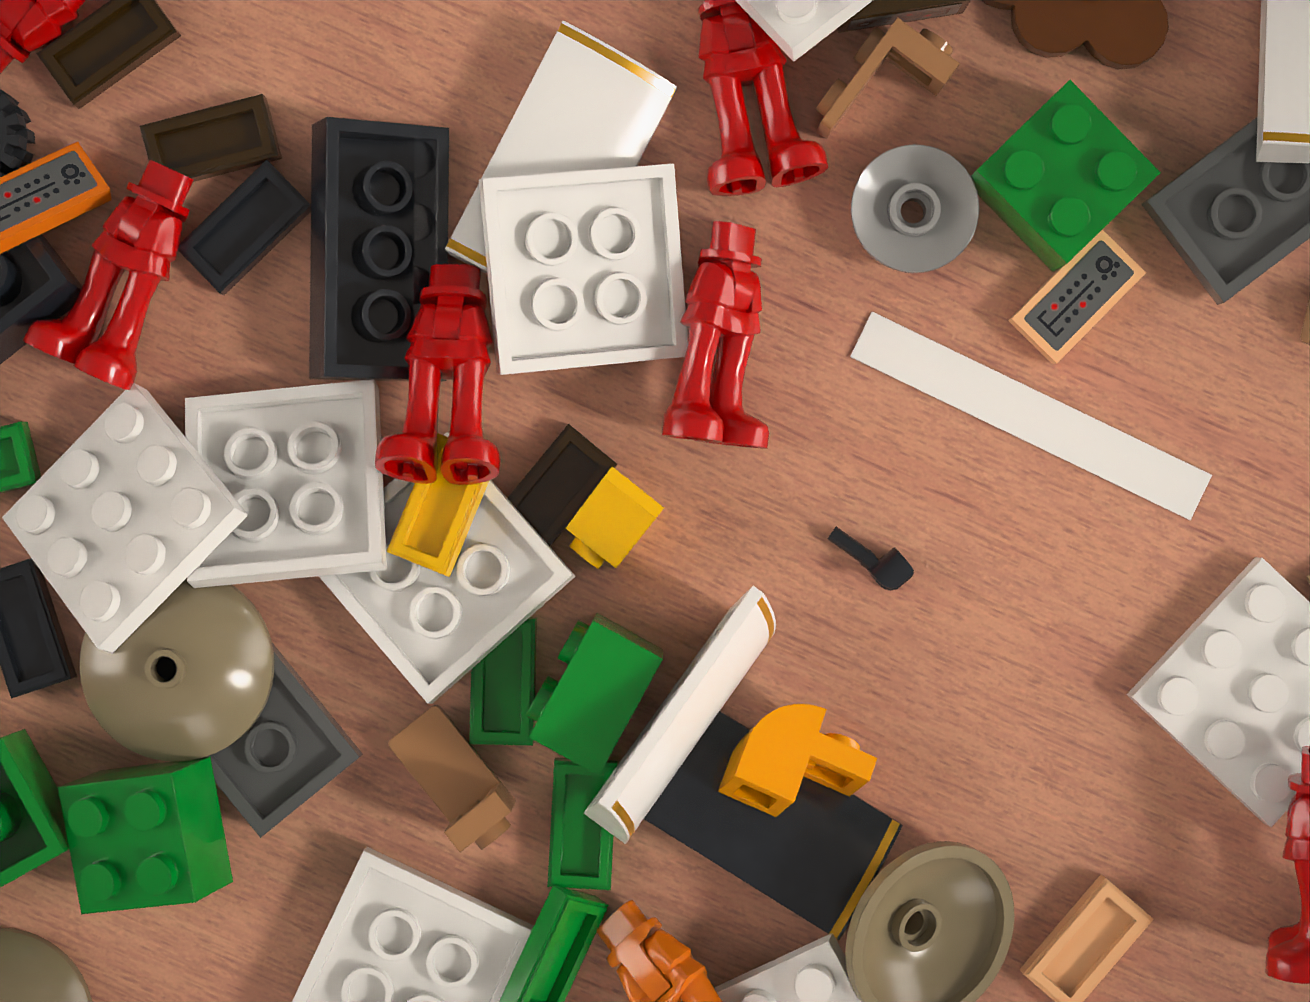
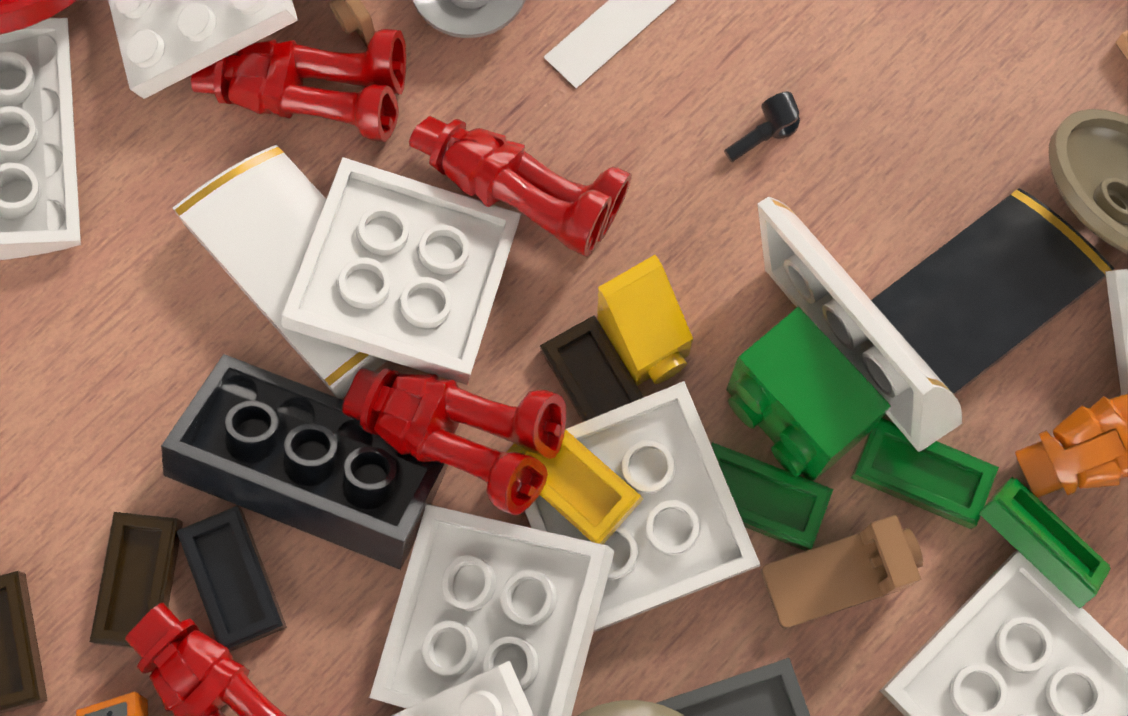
camera: 65 degrees left, 15 degrees down
(784, 749) = (924, 252): light orange brick -> none

